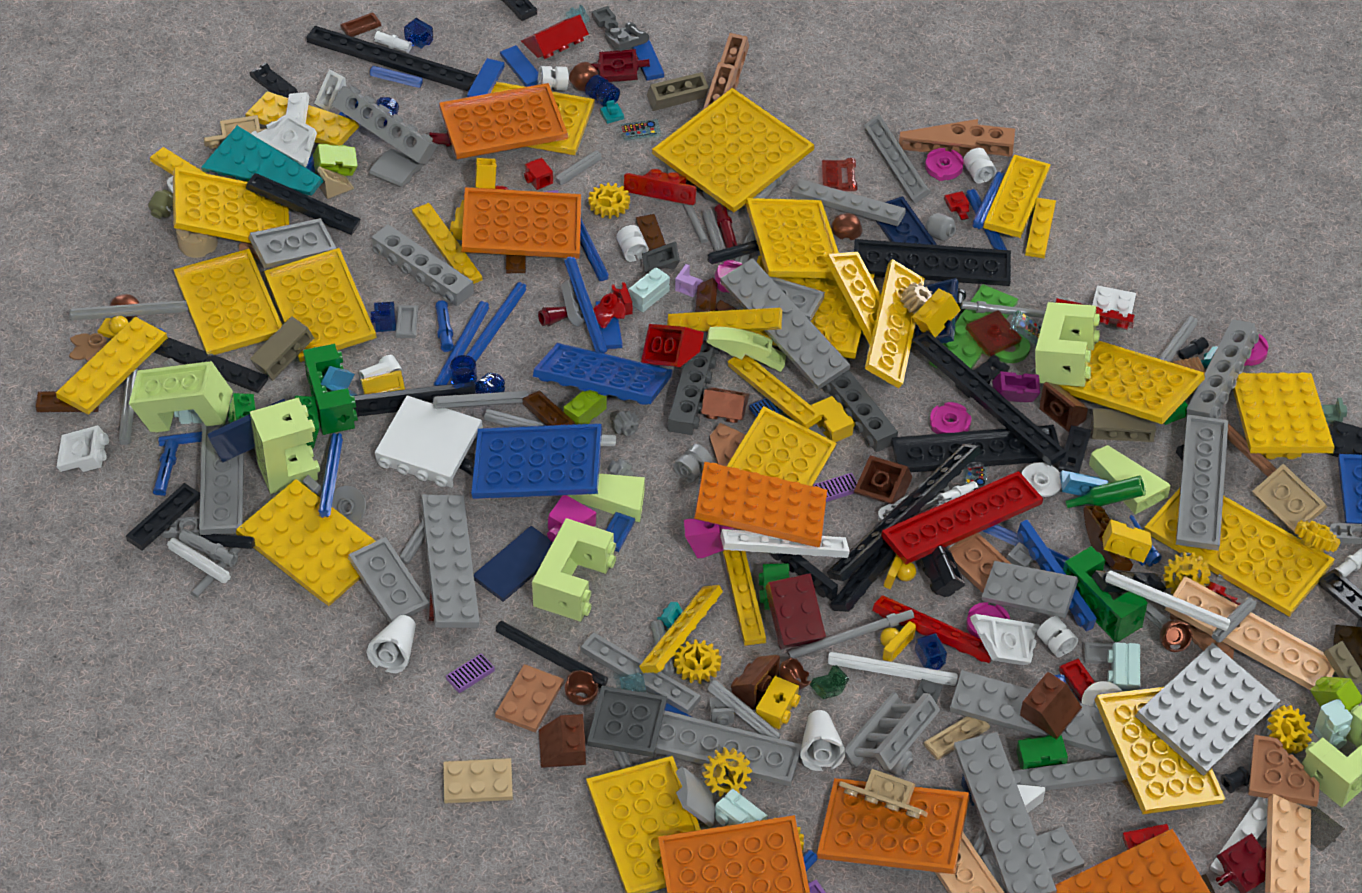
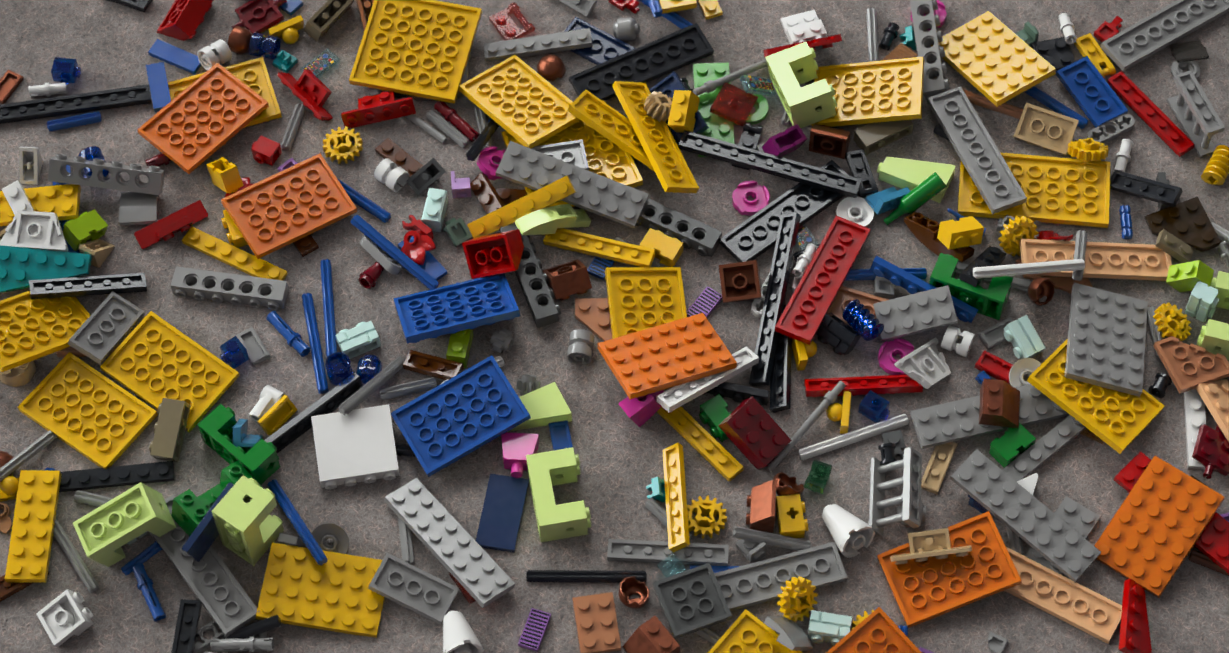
camera: 30 degrees left, 10 degrees up
(412, 193) = (171, 224): none -> red bracket
(499, 360) = (358, 339): none -> light aqua brick
(613, 145) = (310, 91): none -> red bracket
(632, 88) = (288, 30): none -> yellow tile
(656, 314) = (457, 231): none -> sand green bracket
(912, 694) = (887, 453): none -> black bush
(972, 569) = (862, 320): none -> clear blue piece
(1312, 621) = (1126, 222): none -> blue axle
(1318, 486) = (1055, 105): none -> blue axle

